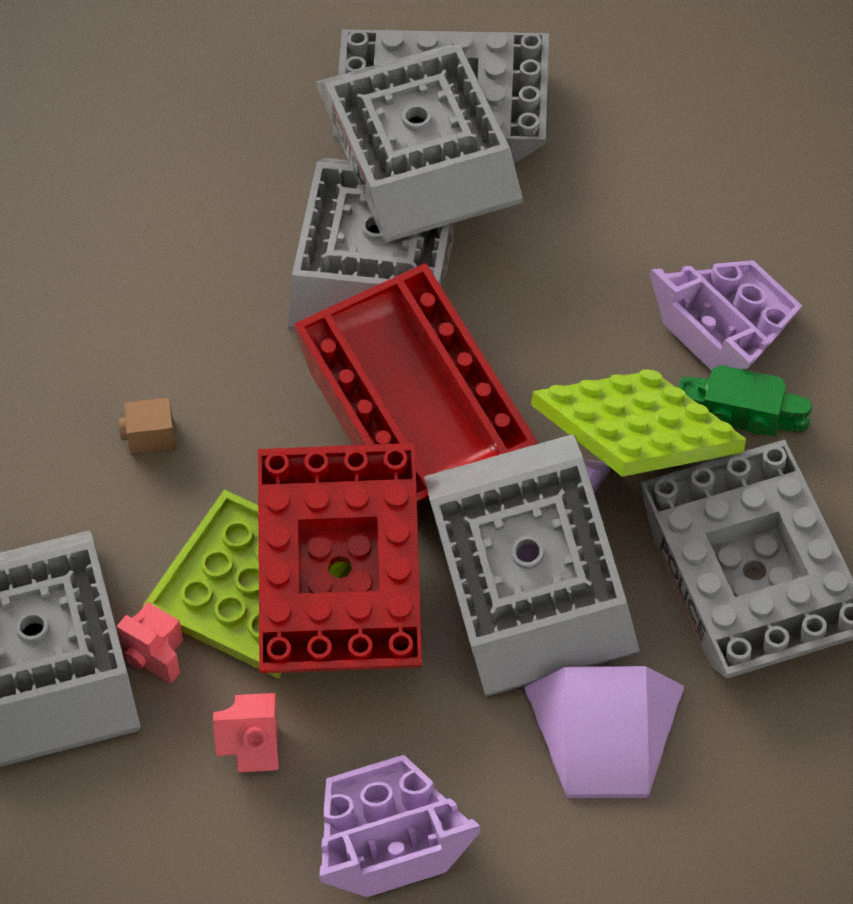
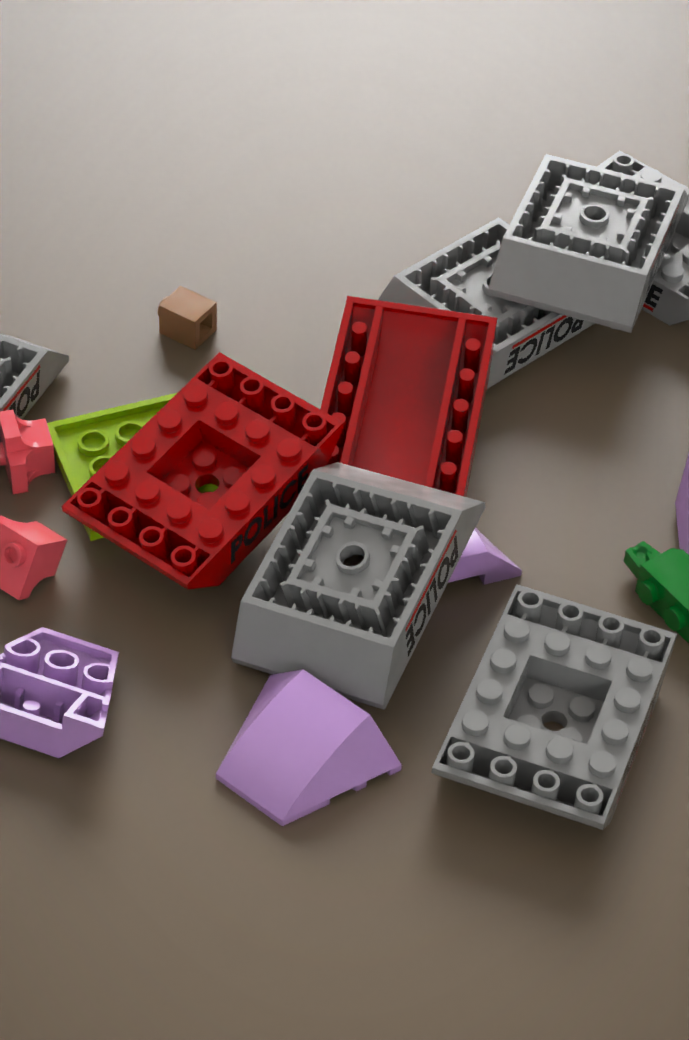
camera: 35 degrees right, 10 degrees down
(638, 422) = (557, 537): lime plate -> none

